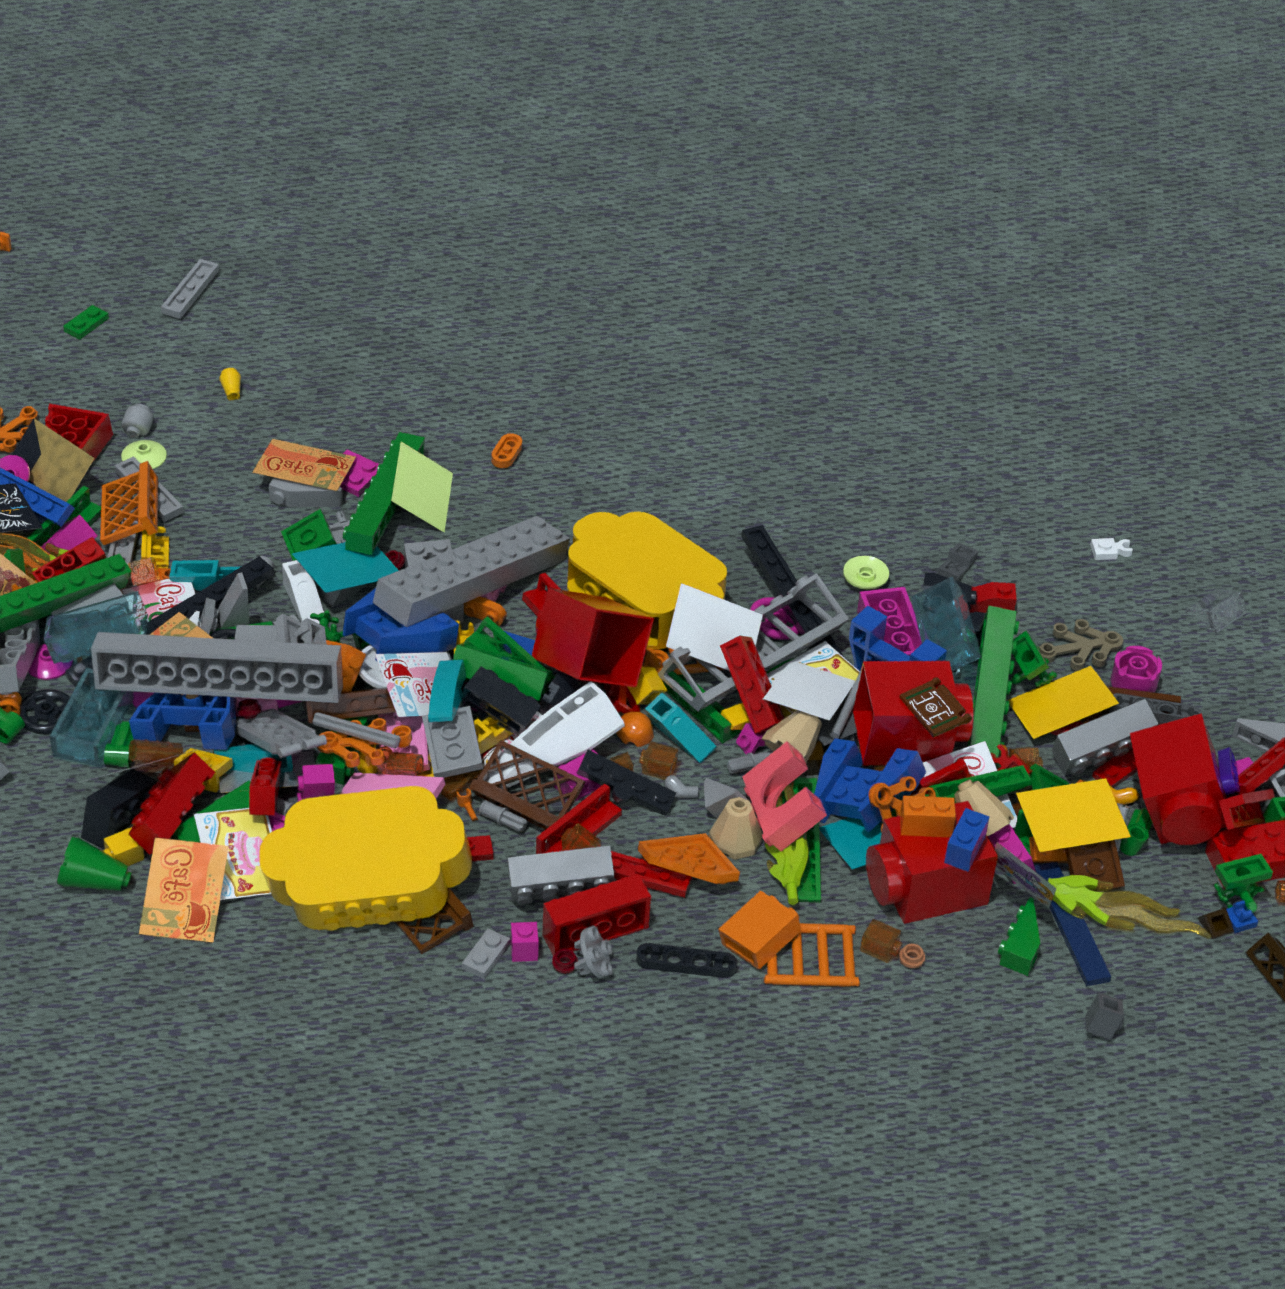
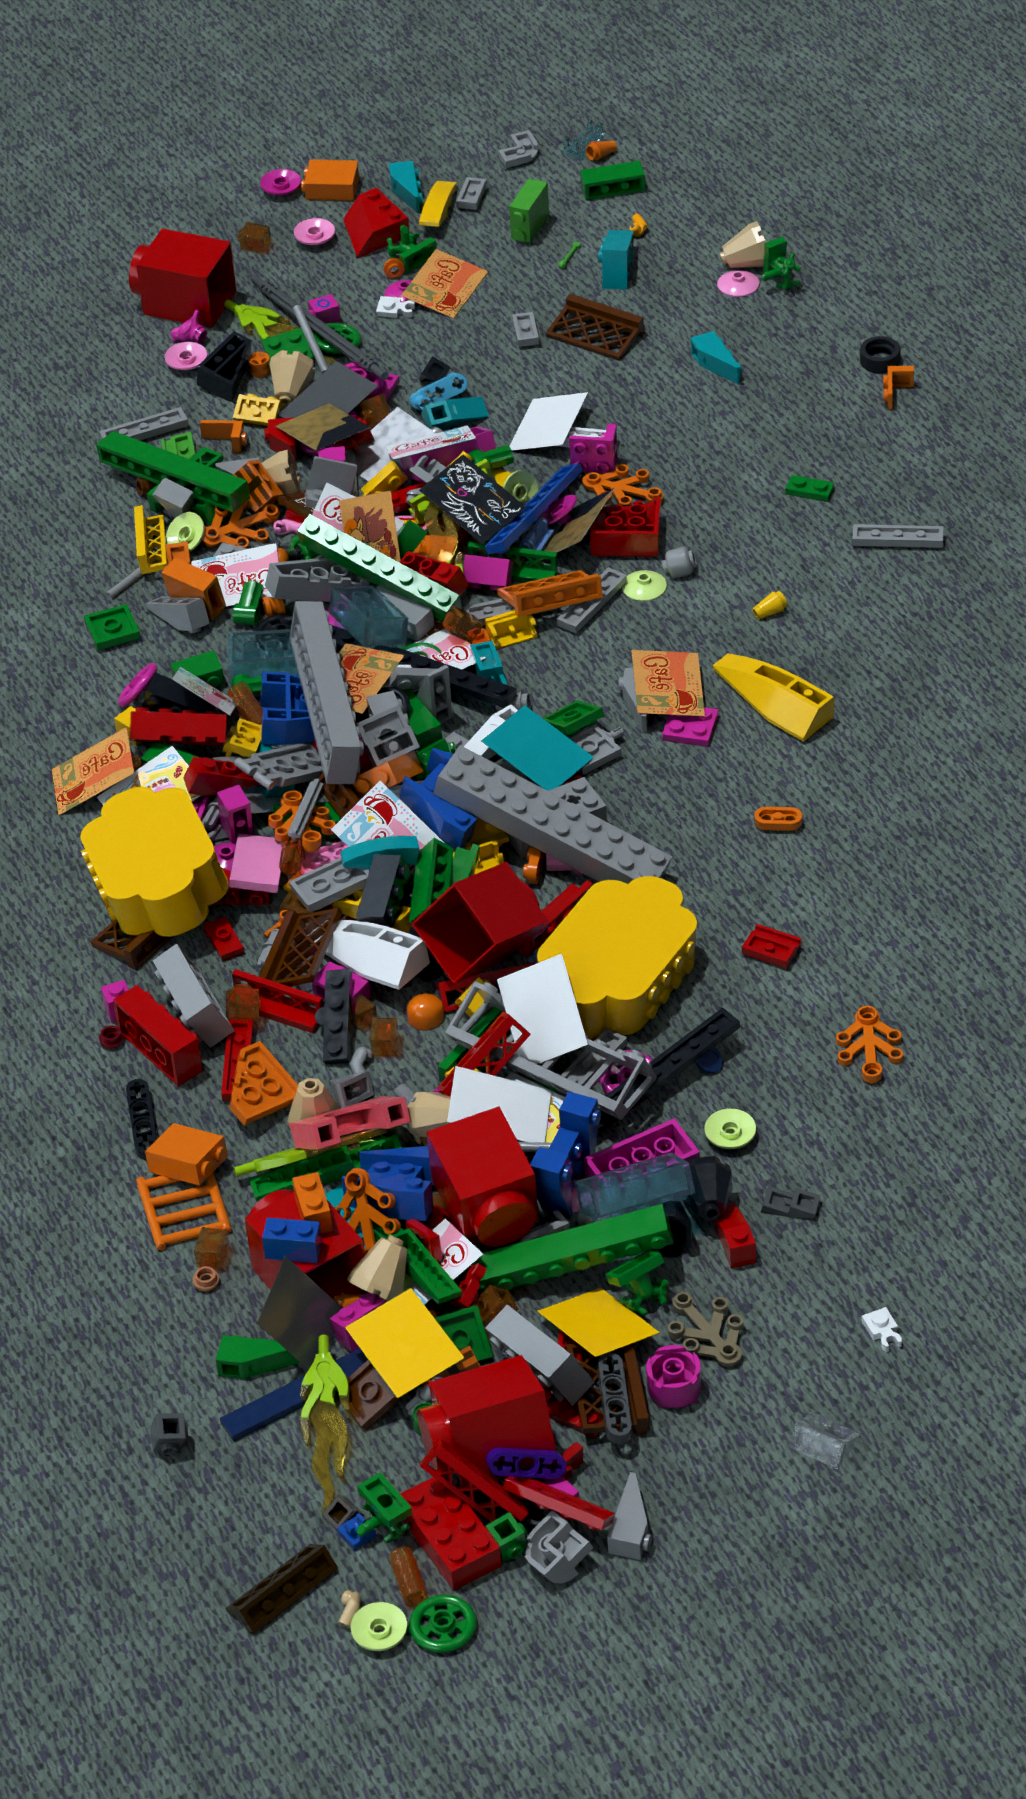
camera: 80 degrees right, 0 degrees up
(75, 770) = (204, 666): none -> green brick
(78, 825) = (137, 685): none -> dark pink plate
(91, 868) = (98, 707): green cone -> none
(352, 408) = (778, 694): none -> yellow wedge
(376, 507) = (655, 746): green brick -> none
(422, 487) = (679, 770): yellowish green sticker -> none
(485, 953) = (91, 982): light grey plate -> none
(595, 953) = (127, 1045): light grey plate -> none
(660, 495) = (771, 946): none -> red plate
(679, 728) = (430, 1036): teal slope -> none
(775, 466) = (869, 1019): none -> orange plant
(935, 707) = (457, 1174): reddish brown piece -> none

